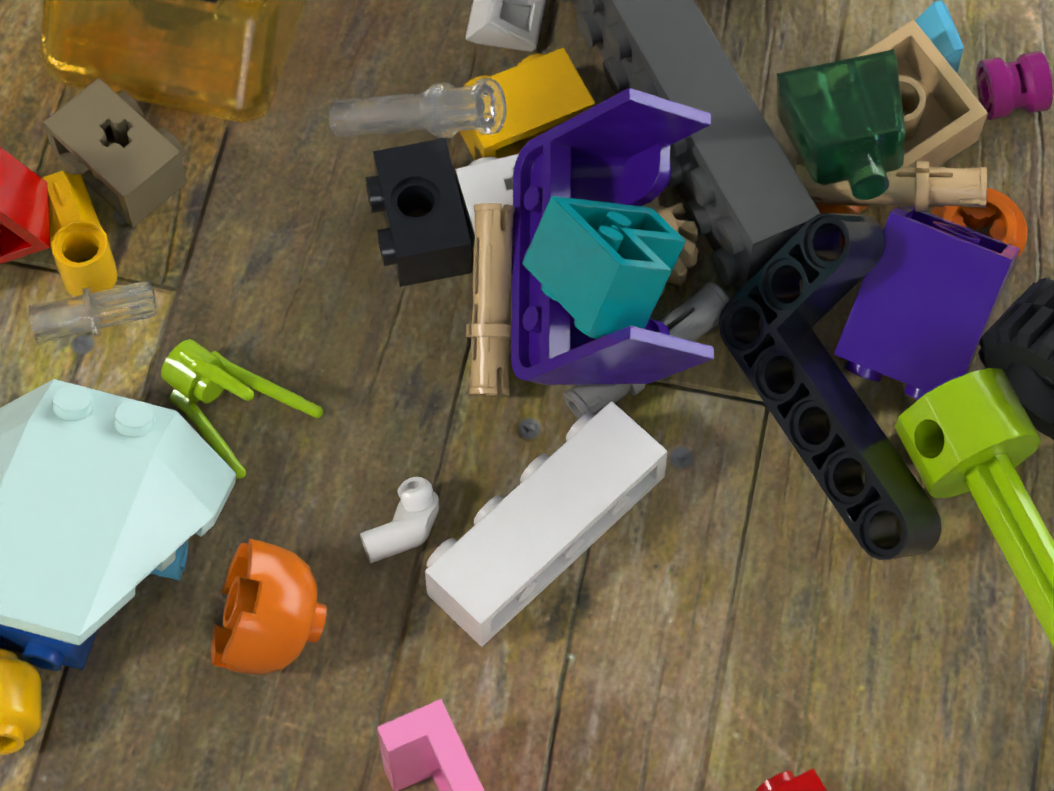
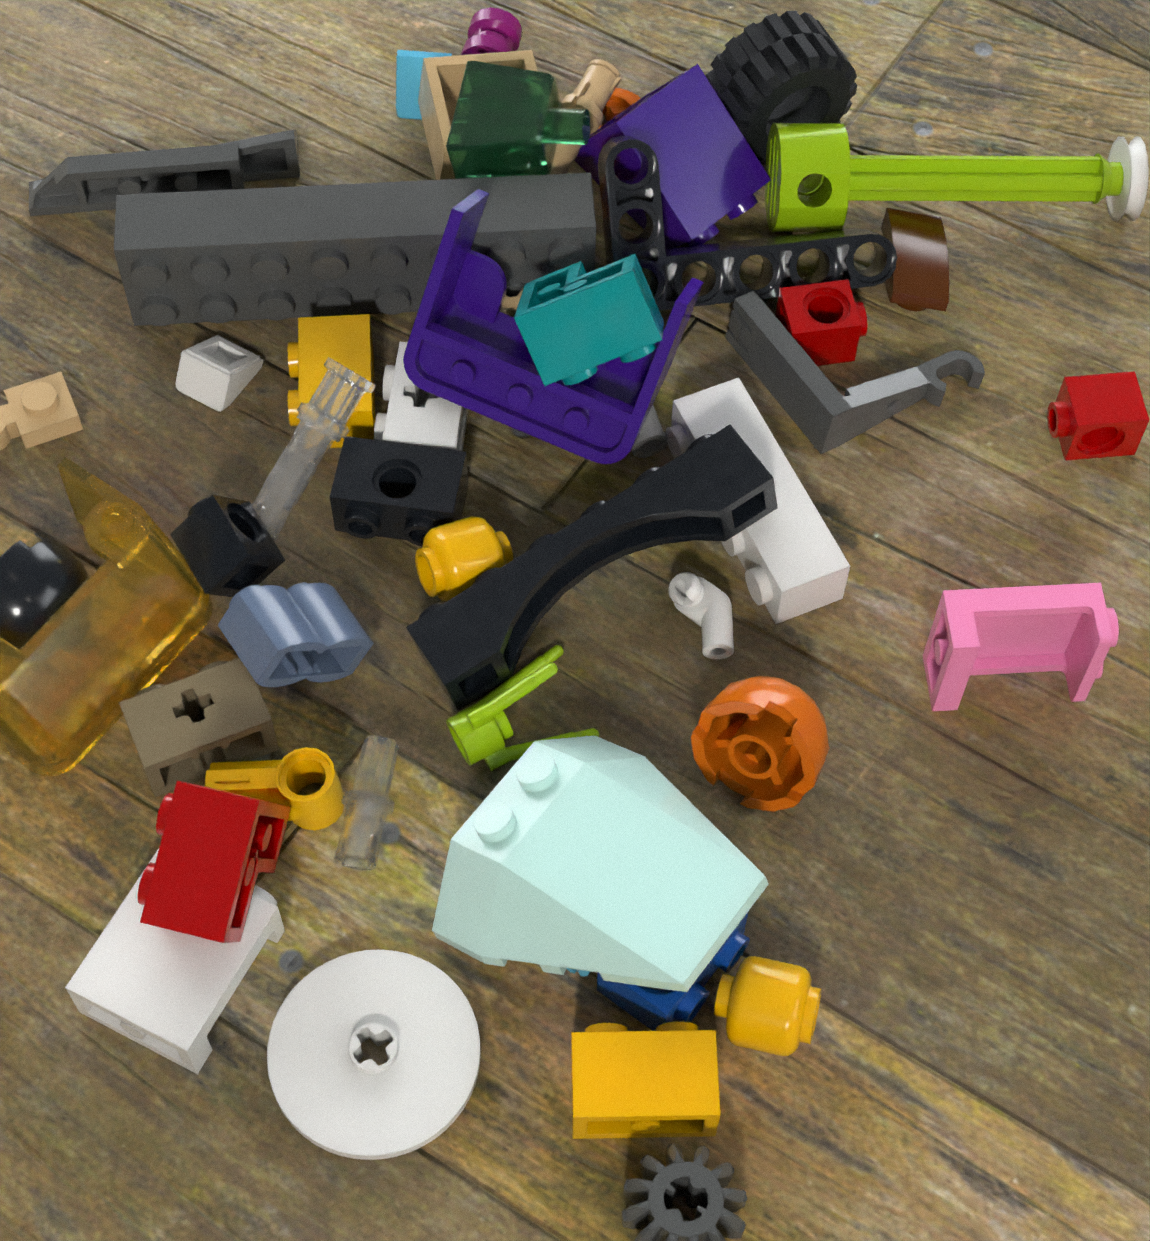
camera: 70 degrees left, 5 degrees down
(222, 182) = (294, 633): none -> sand blue brick
(273, 95) = (226, 545): none -> black brick
(289, 335) = (697, 496): none -> black arch
(364, 291) = (458, 554): none -> yellow head
(491, 300) = (525, 457): tan pin -> none
(714, 593) = (813, 400): none -> dark grey hinge
(793, 488) = (823, 320): none -> red brick
(930, 583) = (922, 260): none -> reddish brown slope

